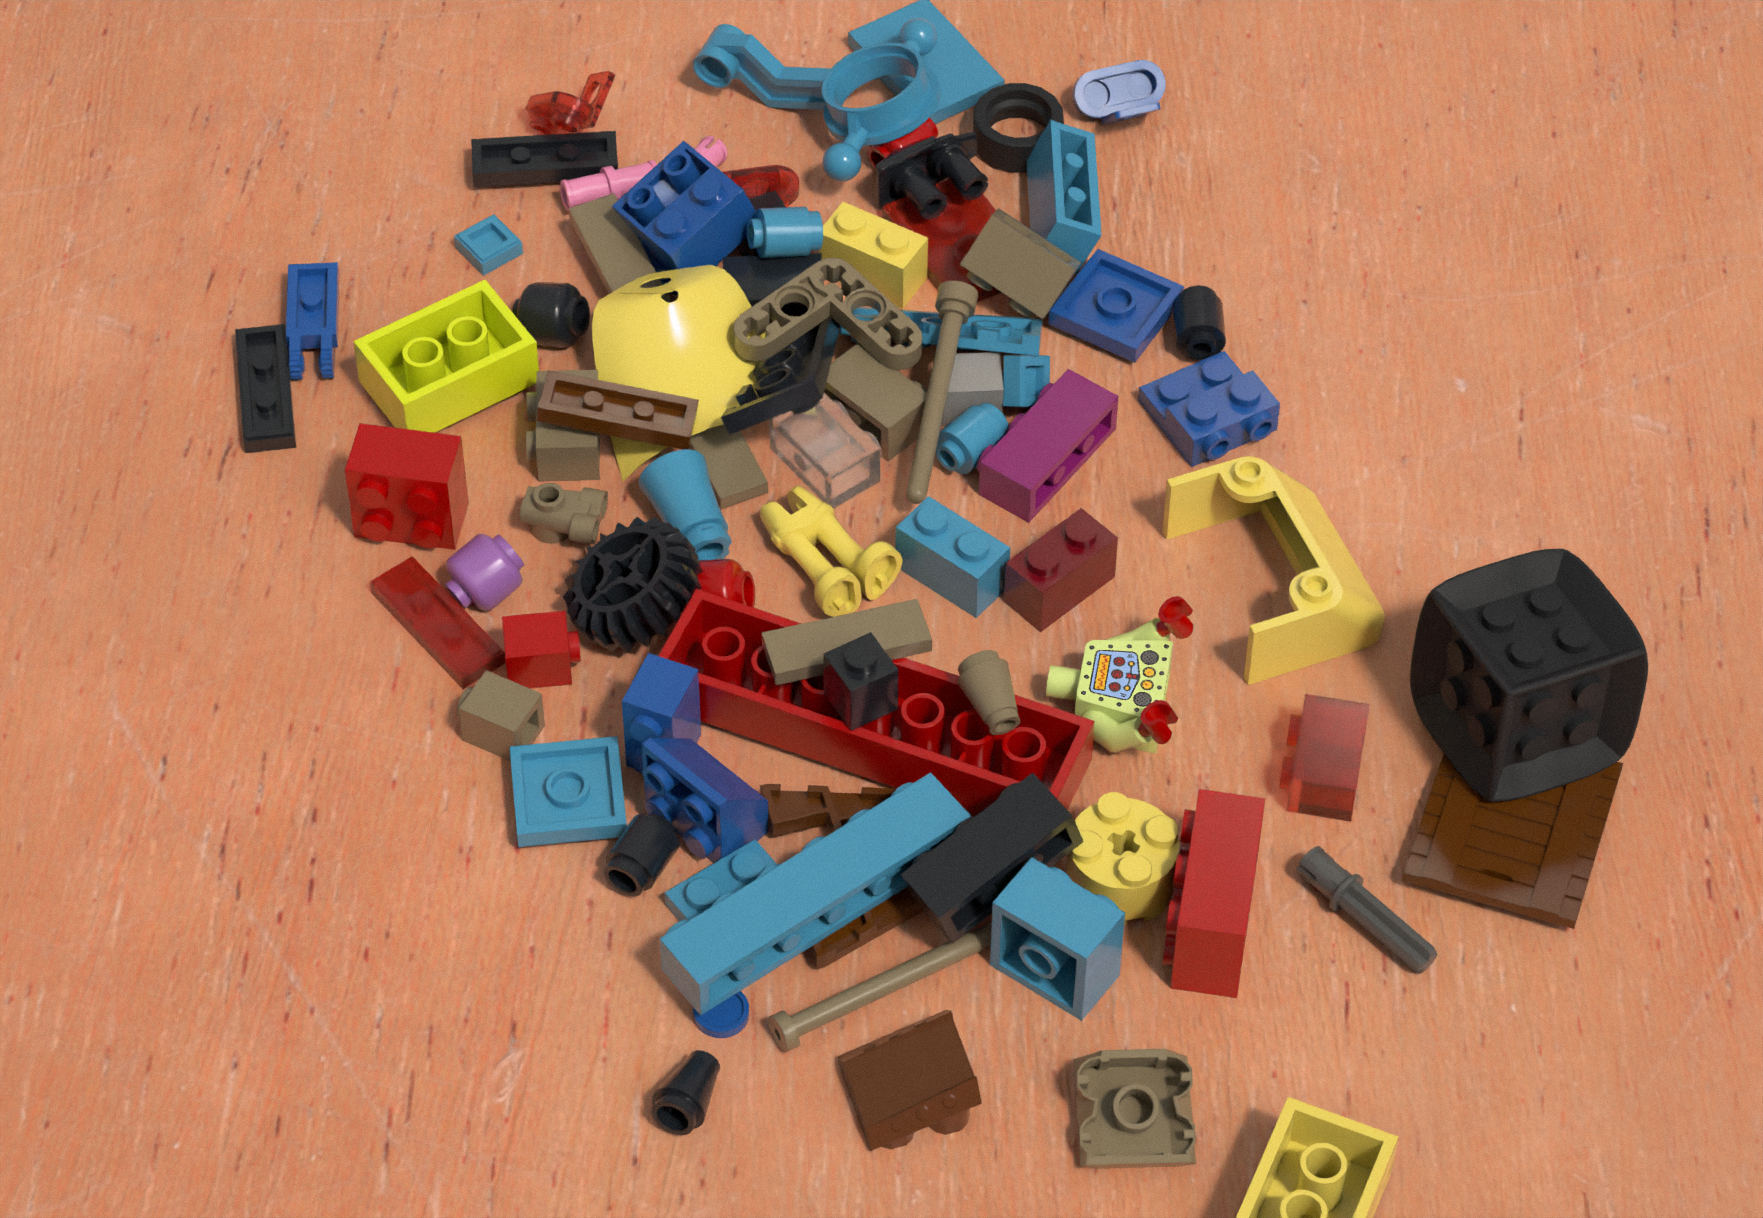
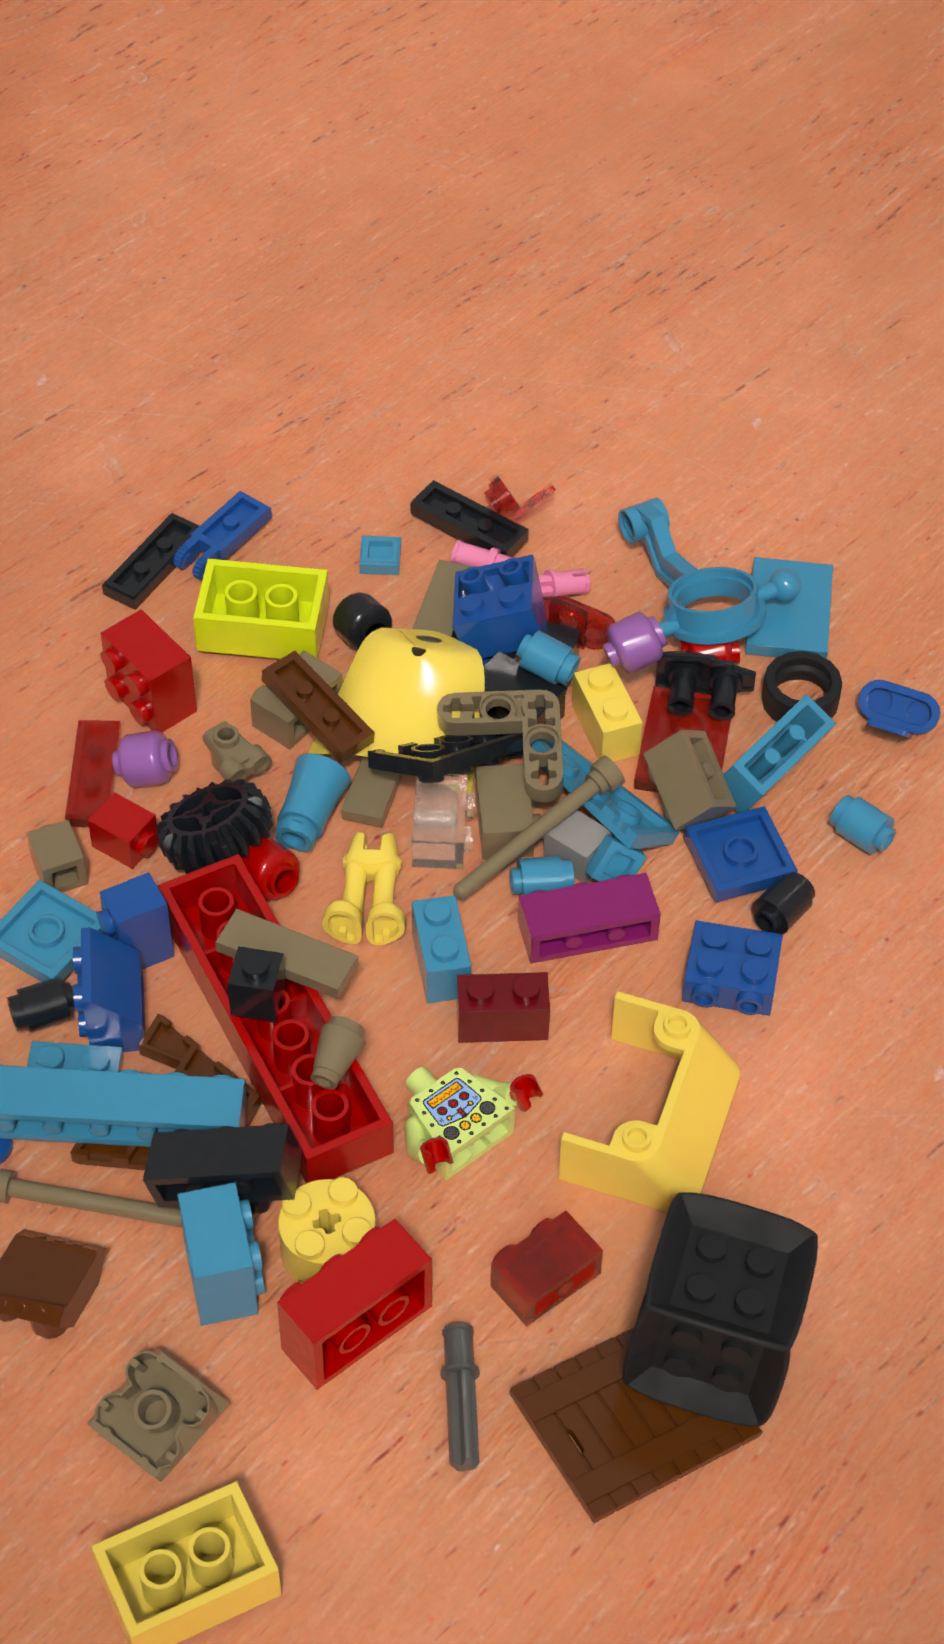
camera: 40 degrees right, 0 degrees up
(856, 166) = (634, 642): none -> medium lavender head
(1195, 211) = (863, 824): none -> dark azure brick

